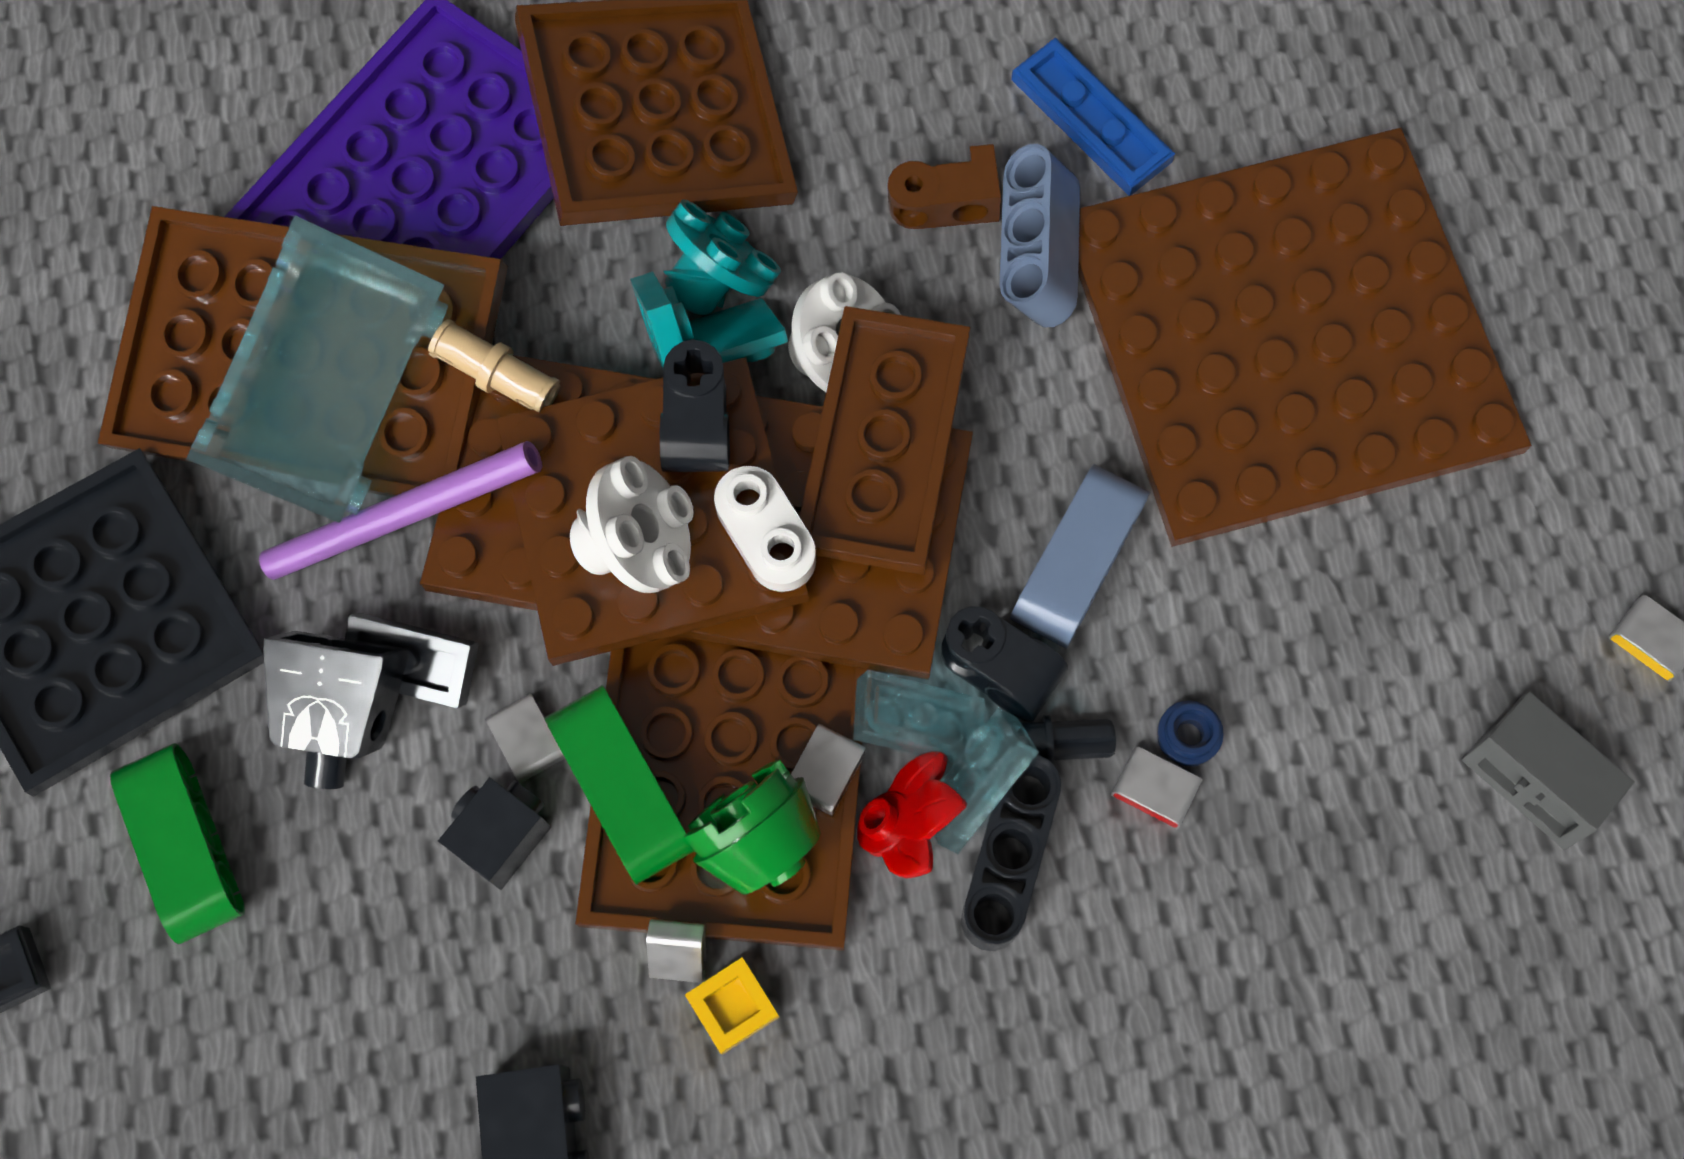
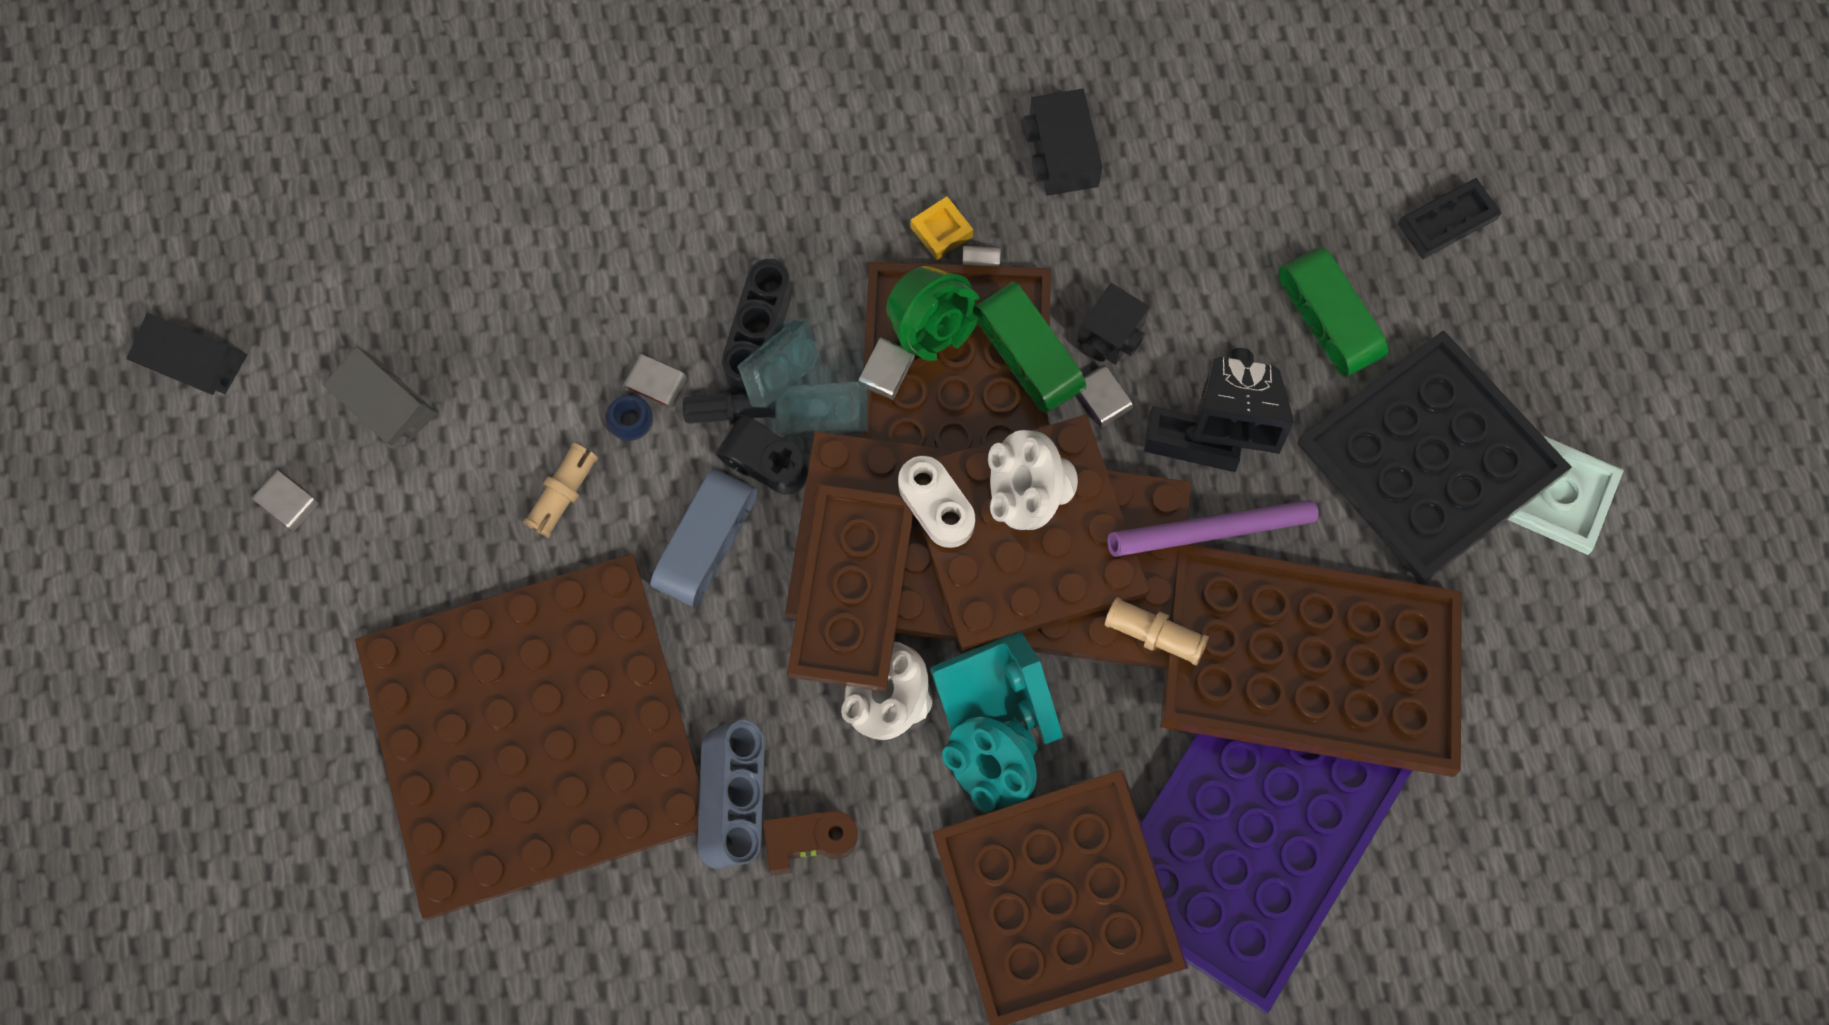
camera: 175 degrees right, 0 degrees up
(317, 371) = (1298, 615): clear light blue windscreen -> none
(696, 417) = (994, 573): black piece -> none
(909, 815) = (823, 340): red plate -> none
(1092, 116) = (685, 926): blue tile -> none
(1278, 630) = (560, 490): none -> tan pin

